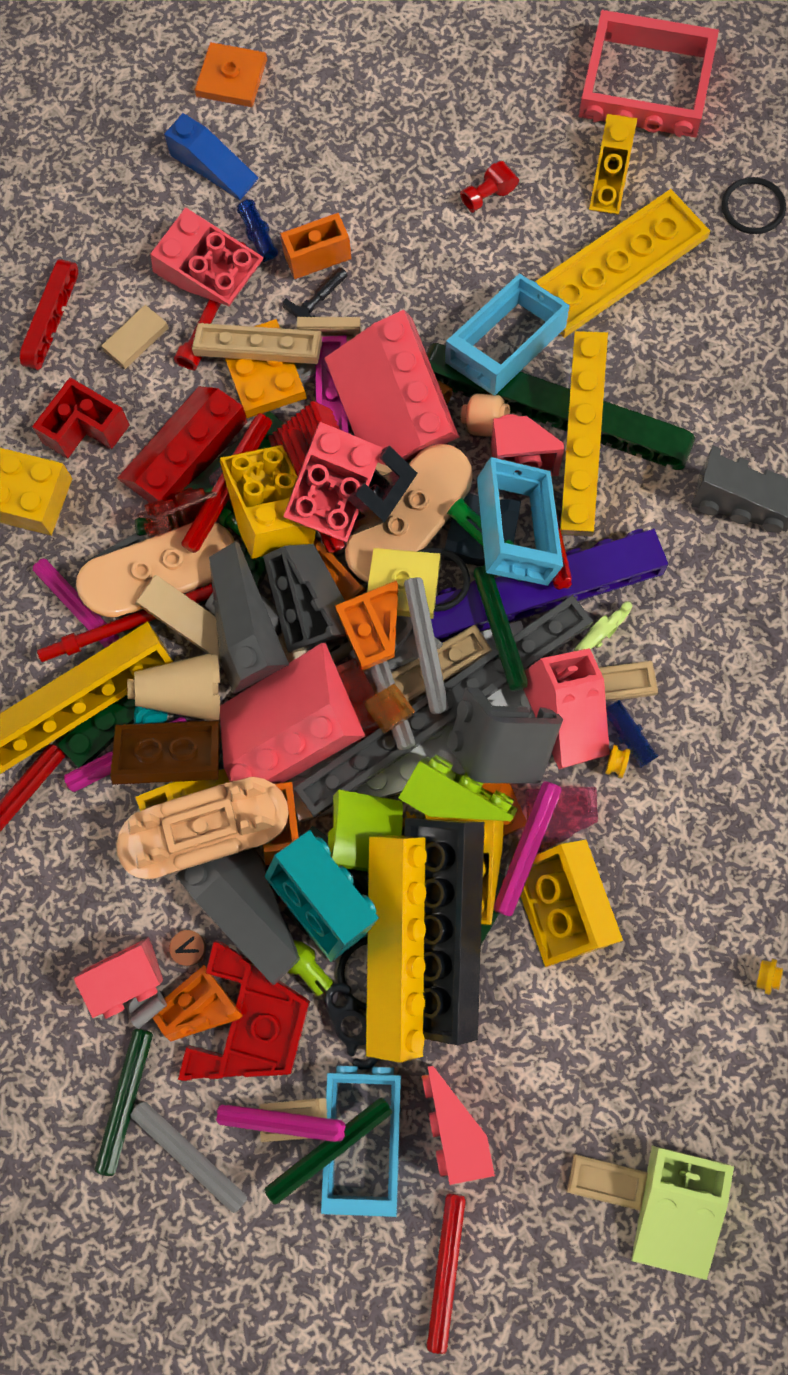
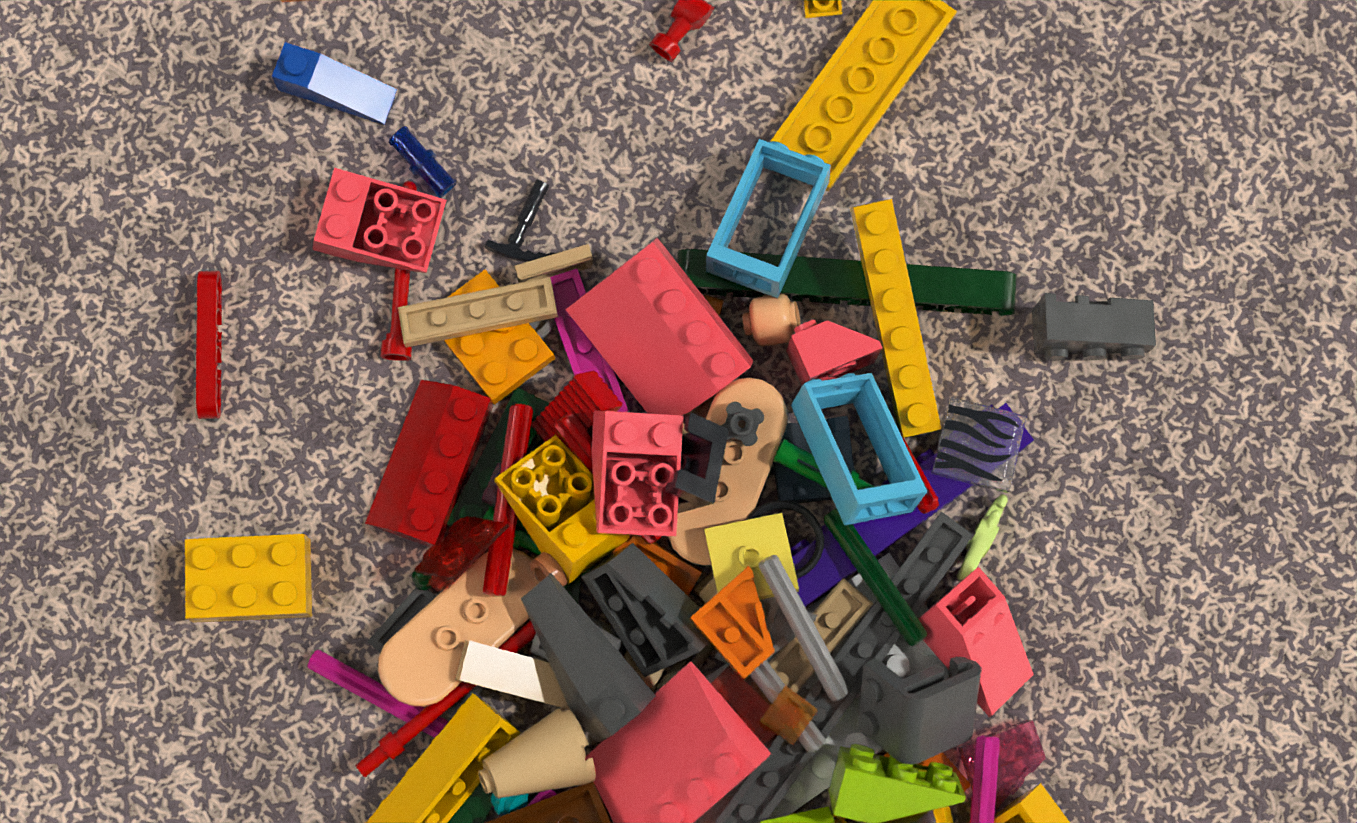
camera: 30 degrees left, 5 degrees up
(79, 412) = (295, 460): red brick -> none
(135, 336) = (322, 340): tan tile -> none
(240, 536) = (546, 564): none -> nougat tile
(316, 245) = (504, 166): orange brick -> none
(434, 485) = (752, 419): none -> dark grey plate
(617, 761) = (1046, 682): yellow bush -> none
(620, 552) = (979, 444): none -> clear tile
(629, 681) = (1029, 583): tan tile -> none
(630, 733) = (1050, 646): clear blue pin -> none

